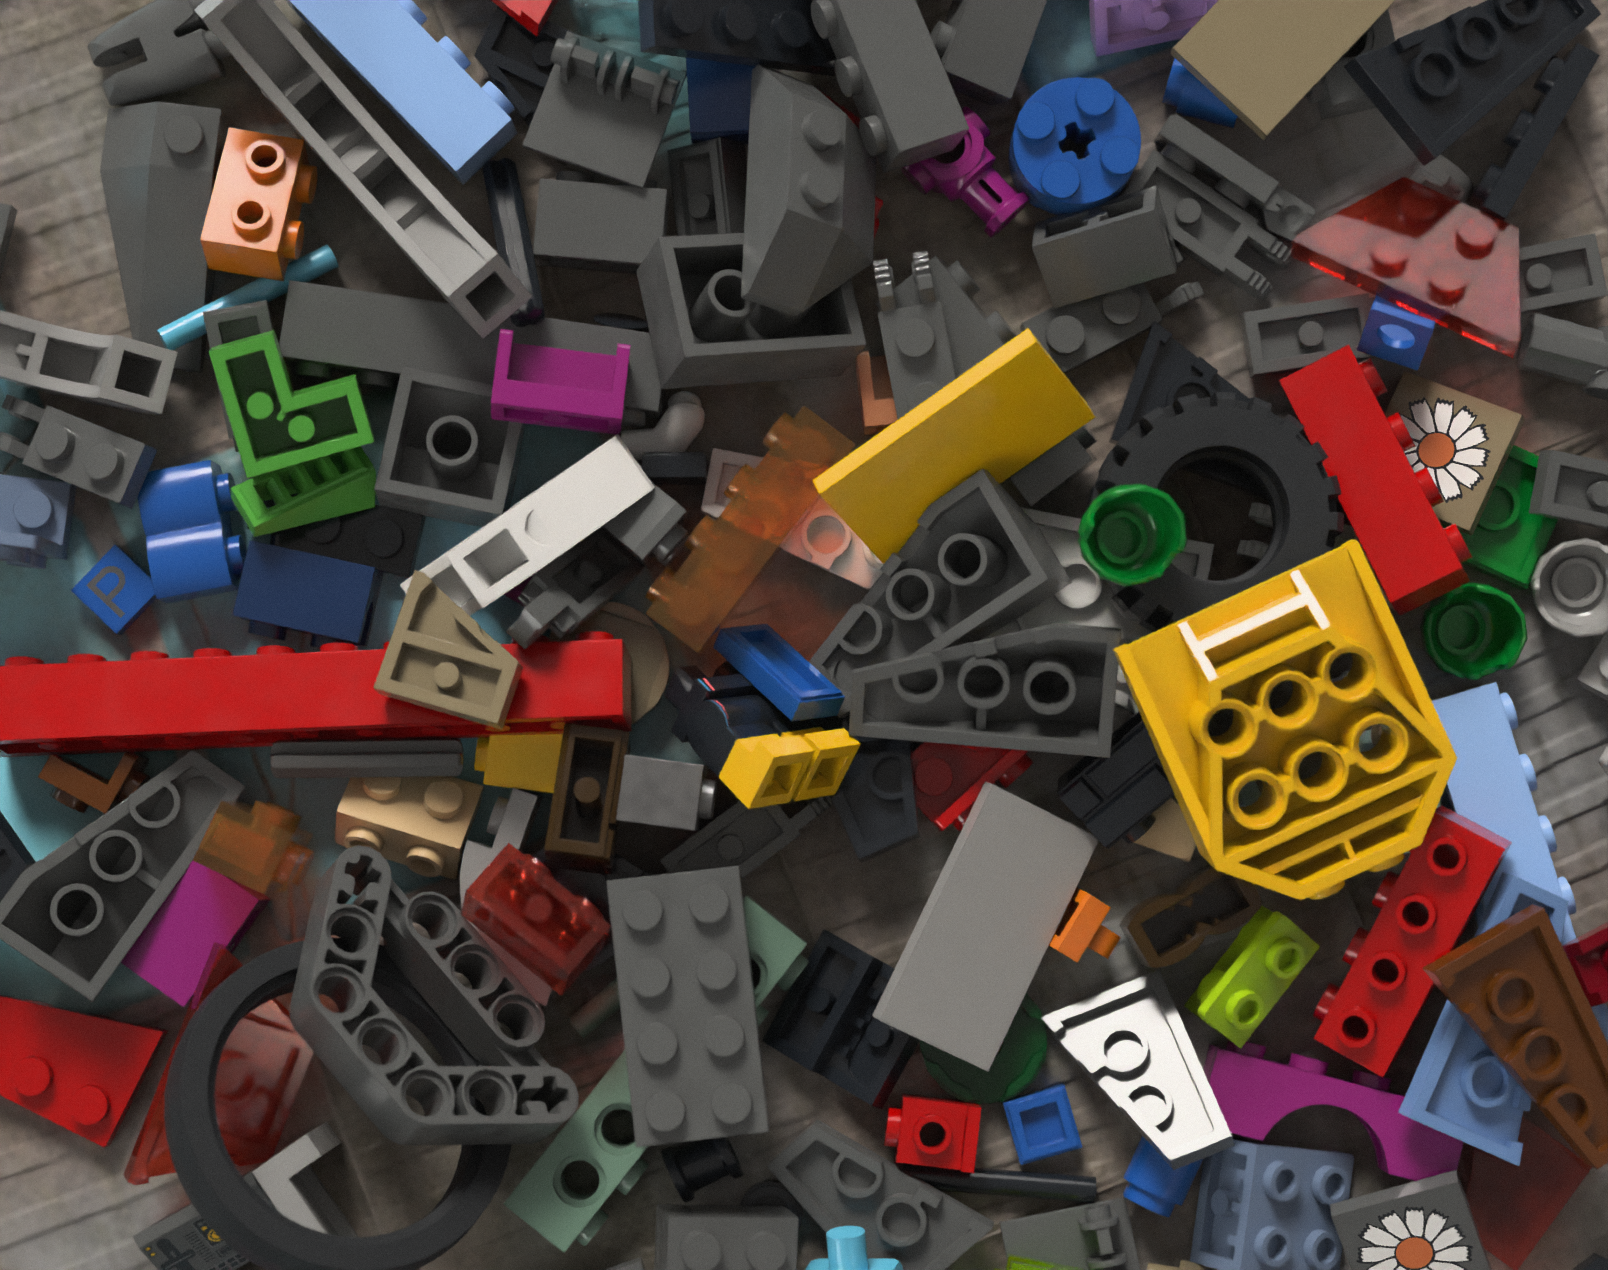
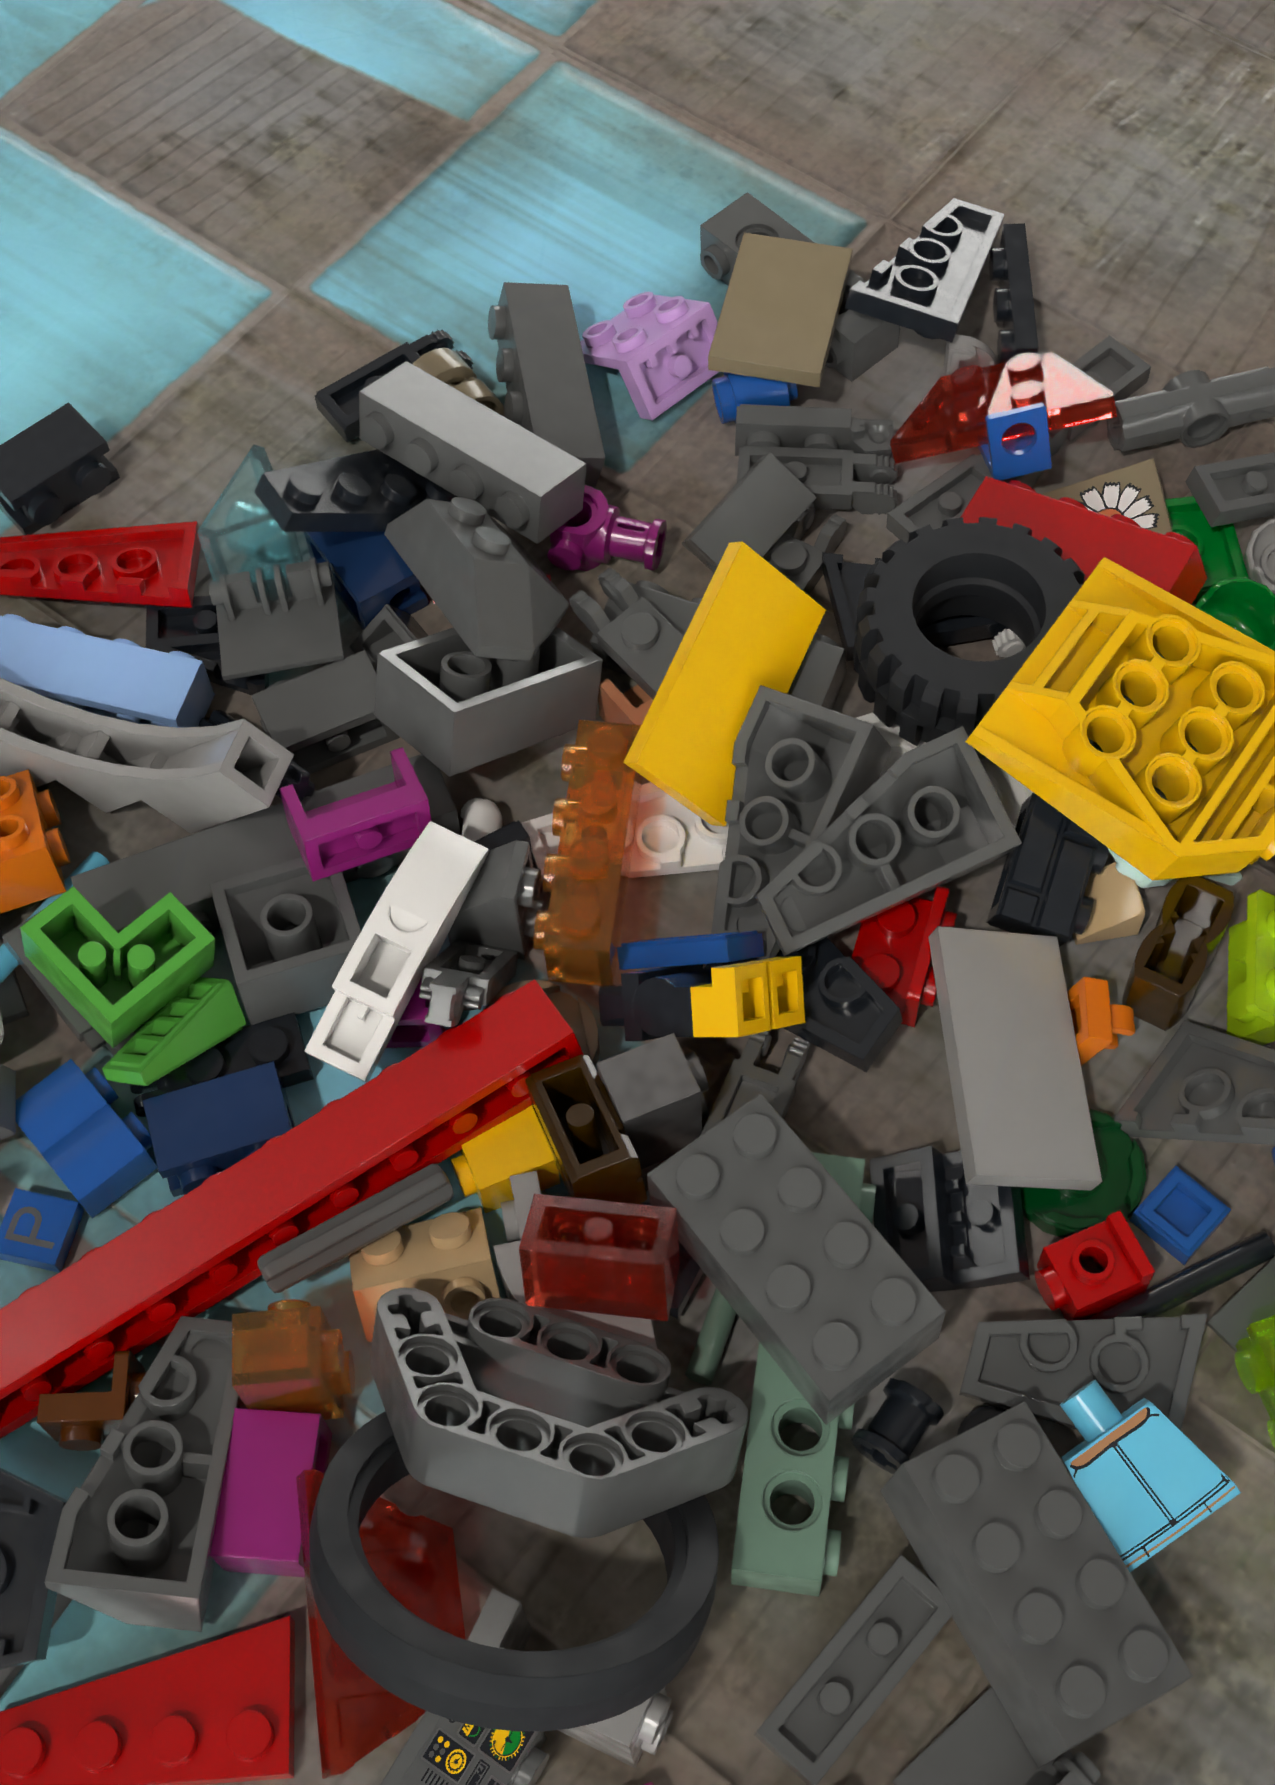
camera: 25 degrees left, 25 degrees down
(446, 659) = (385, 1074): dark tan wing -> none
(1088, 114) = (675, 467): blue brick -> none
(1131, 534) = (919, 634): green hair -> none

